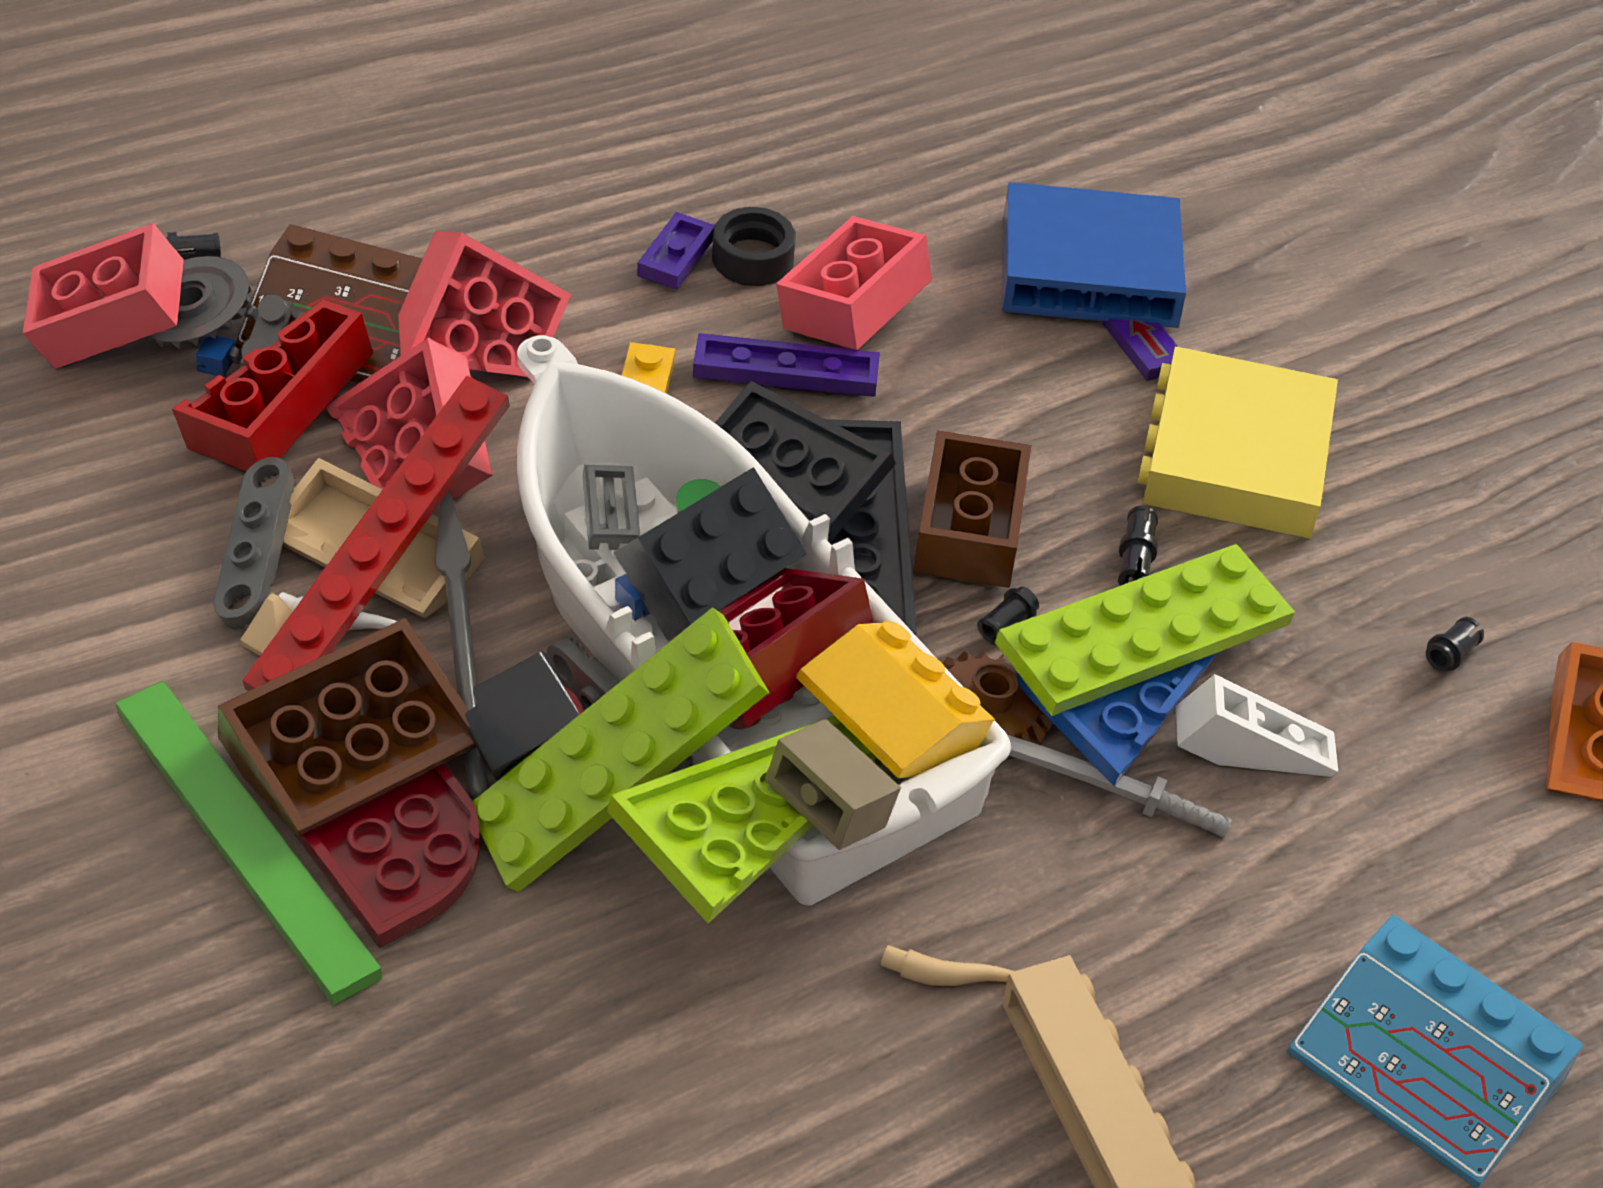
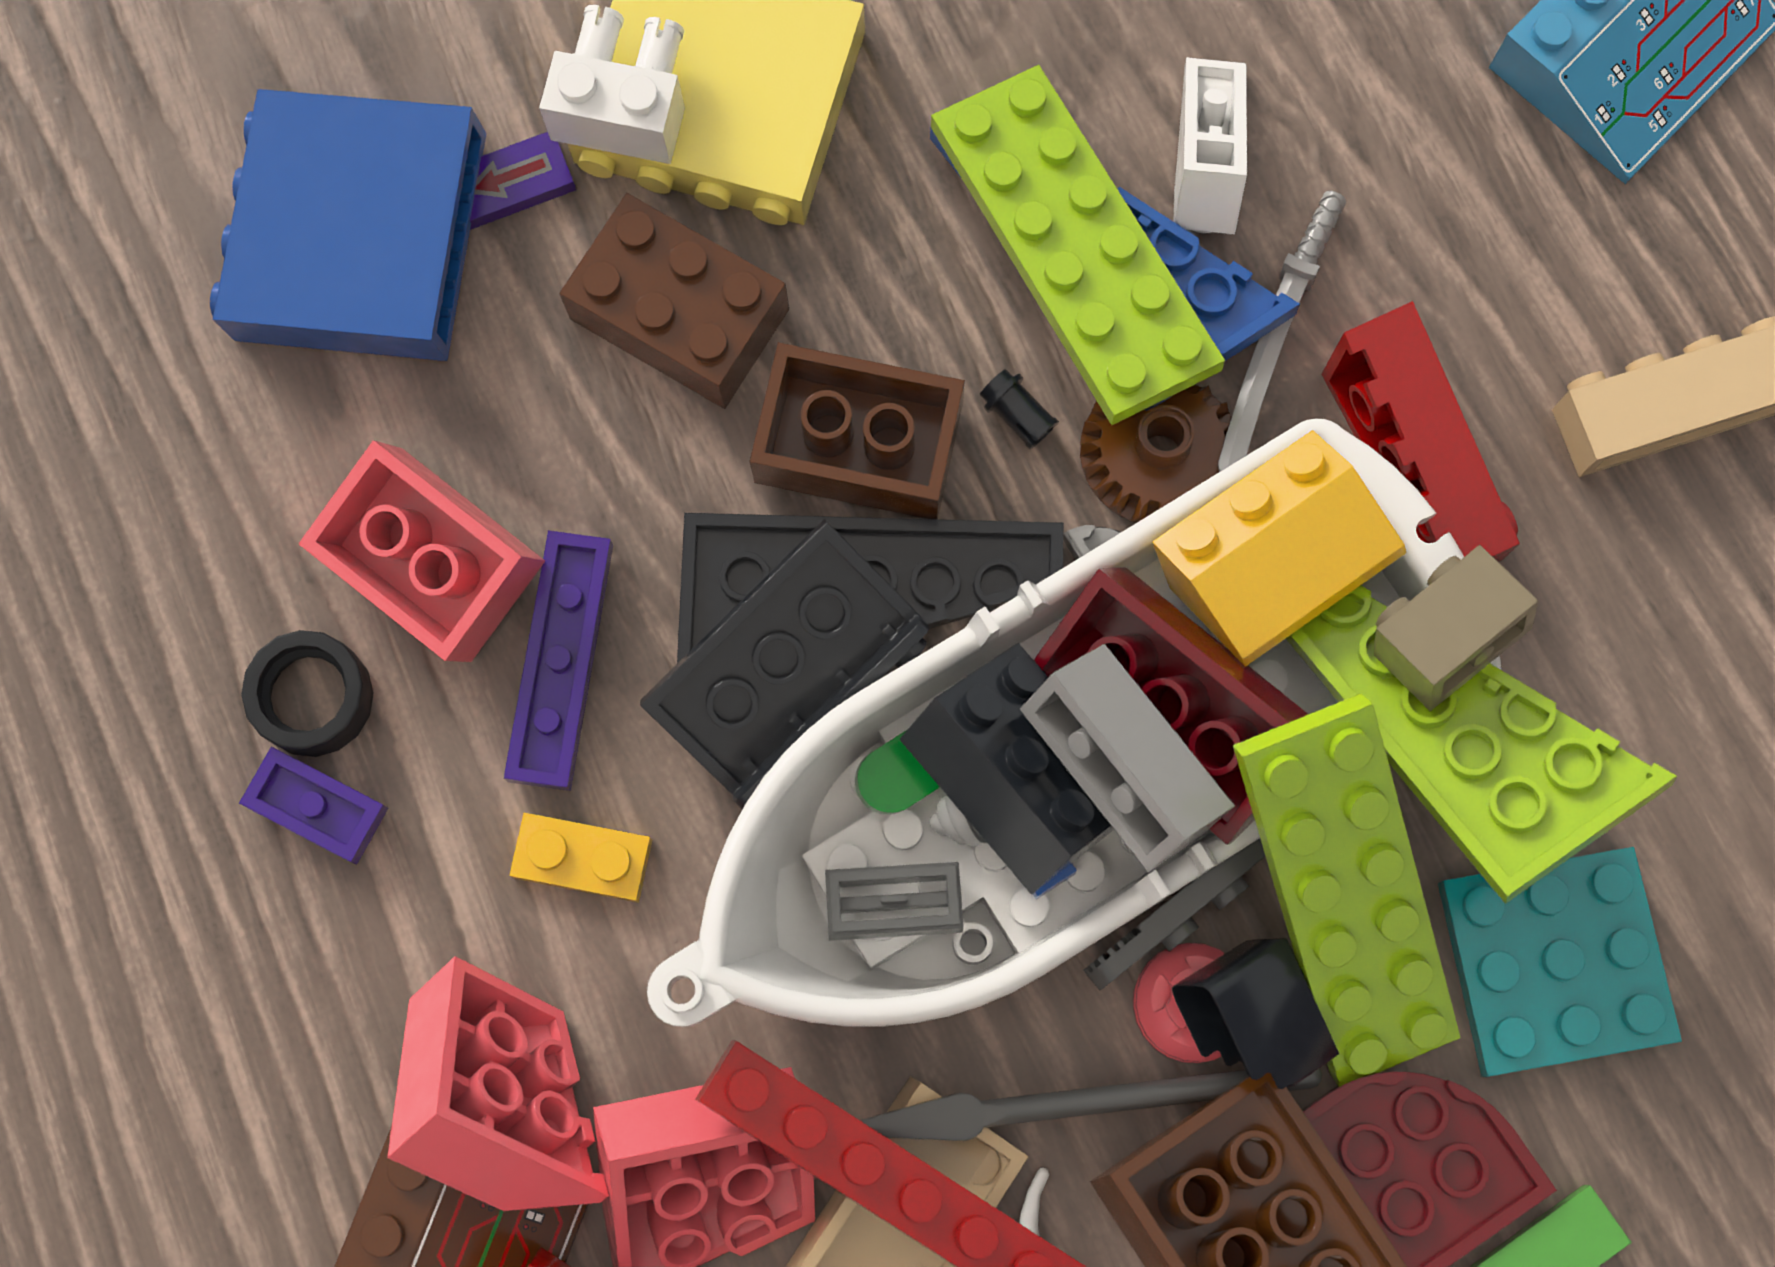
camera: 80 degrees left, 30 degrees up
(570, 963) = (1560, 966): none -> teal plate
(717, 577) = (1126, 757): none -> light grey brick
(939, 972) = (1554, 543): tan animal -> none
(1008, 857) = (1407, 412): none -> red wedge
(1066, 413) = (675, 300): none -> reddish brown brick
(1138, 545) = (904, 238): black pin -> none
(1200, 354) = (612, 103): none -> white brick

